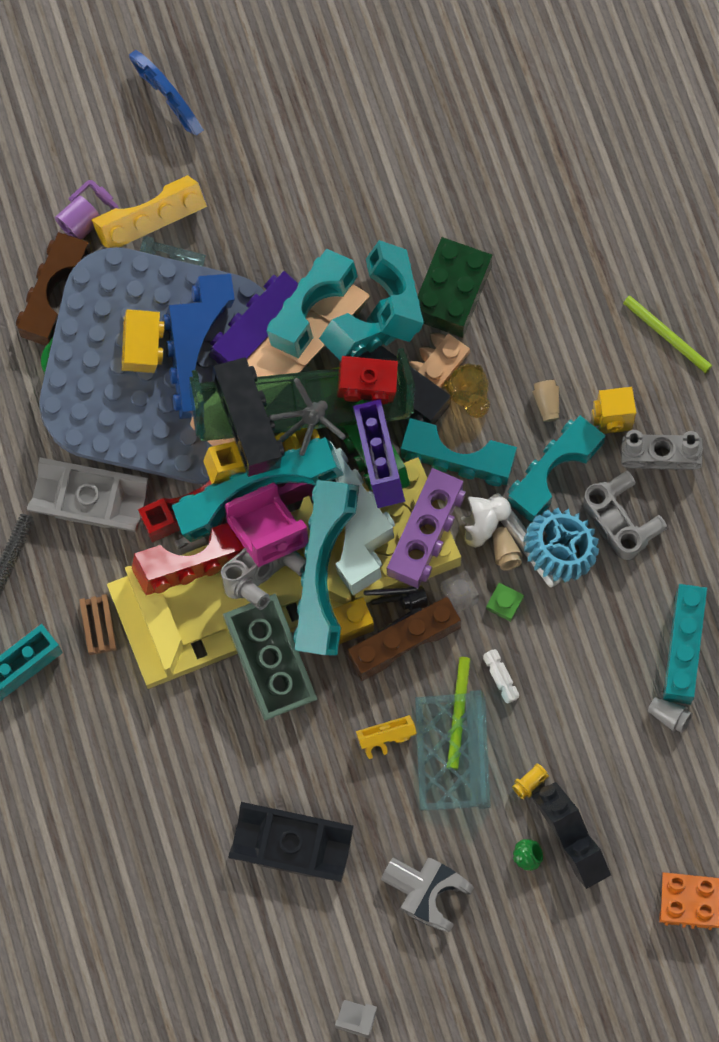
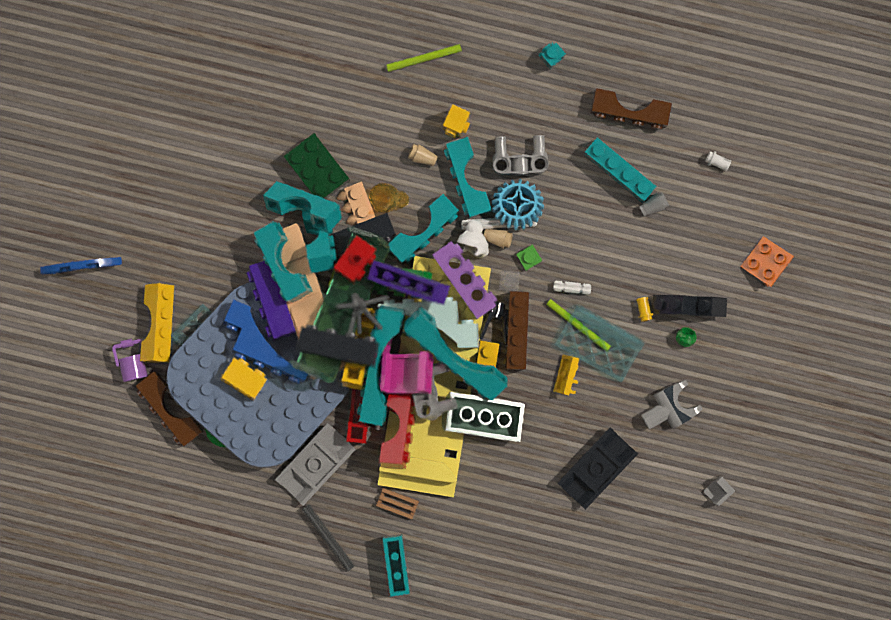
camera: 60 degrees left, 15 degrees up
(684, 451) = (504, 97): light grey piece -> none

